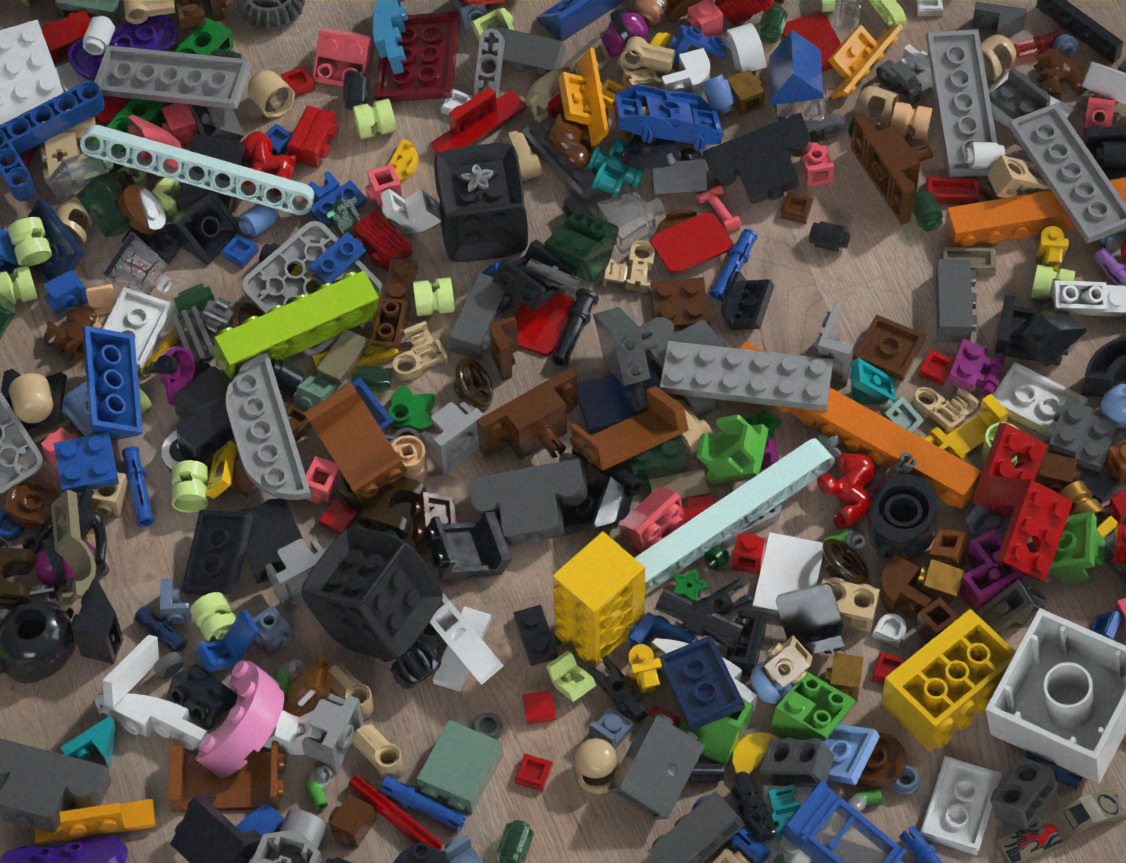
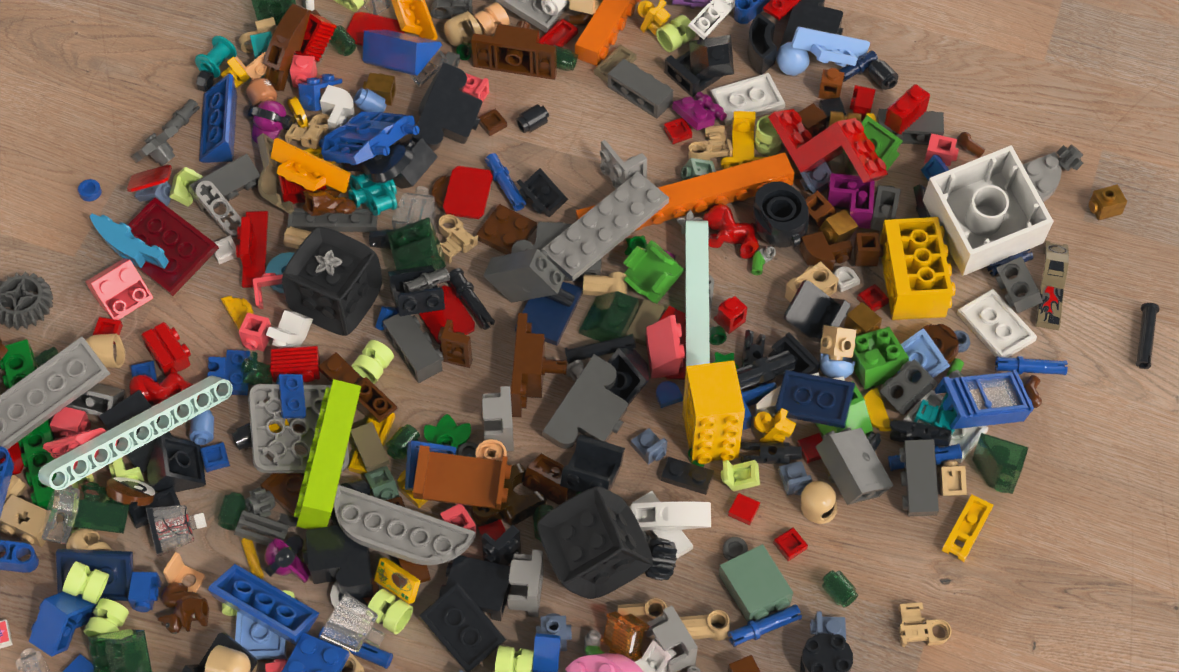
camera: 55 degrees left, 0 degrees up
(142, 317) = (209, 559): white tile -> none
(146, 464) = (352, 625): none -> clear torso
(318, 526) = (503, 548): none -> black bracket
(355, 90) = (156, 298): black brick -> none
(374, 119) = (191, 303): yellowish green wheel -> none
(392, 812) = (758, 649): red axle -> none
(426, 353) = (408, 399): tan piece -> none
(431, 152) = (266, 280): none -> coral bracket
(470, 384) = (464, 384): dark brown piece -> none
(539, 582) = (649, 446): none -> sand blue bracket
(634, 435) = (592, 313): dark orange panel -> none
(649, 55) = (304, 117): tan piece -> none
(711, 195) = (452, 161): coral piece -> none
(745, 48) = (349, 63): white brick -> none
(786, 567) = (764, 305): white tile -> none
(844, 562) = (781, 269): dark brown piece -> none
(870, 384) = (662, 171): teal slope -> none
(890, 347) = (644, 139): reddish brown plate -> none
(899, 468) = (746, 200): dark grey pin -> none
(1081, 435) = (795, 90): dark grey plate -> none

